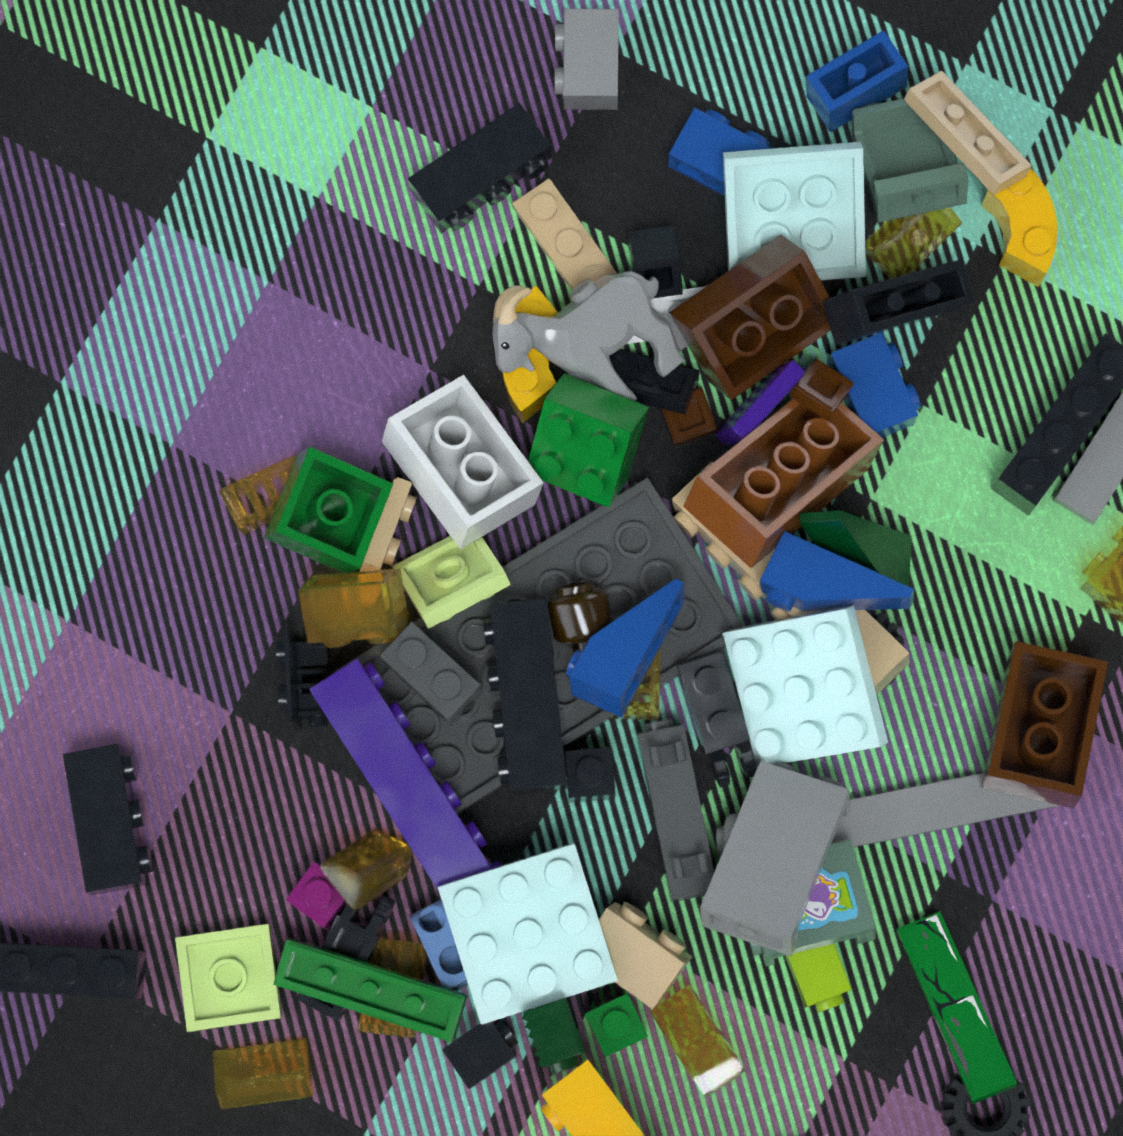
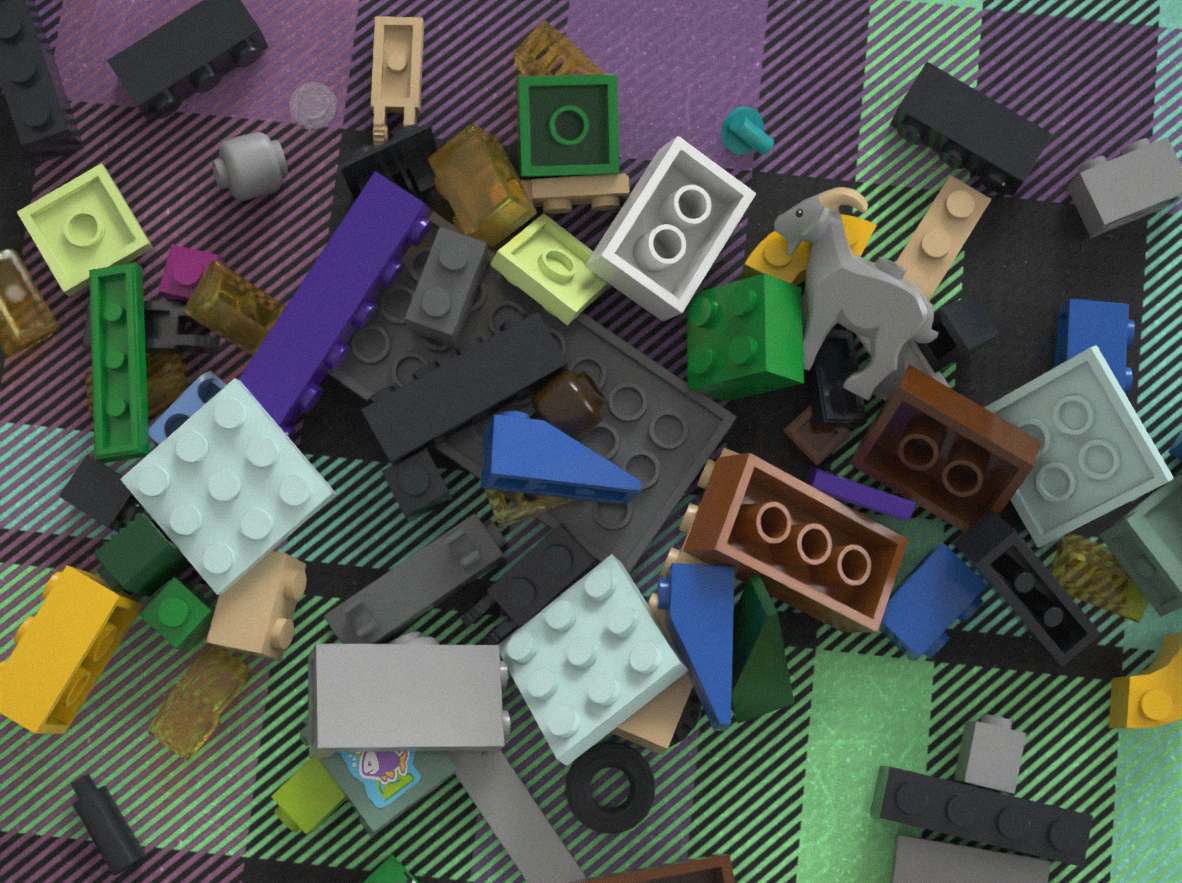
camera: 60 degrees right, 0 degrees up
(202, 728) = (313, 105): none -> clear plate
(208, 642) = (396, 72): none -> tan hinge
(236, 805) = (250, 166): none -> light grey head
(396, 361) = (745, 132): none -> teal plate
(821, 389) = (900, 547): reddish brown tile -> none
(939, 704) = (630, 811): none -> black tyre
(1020, 393) = (990, 754): none -> light grey brick

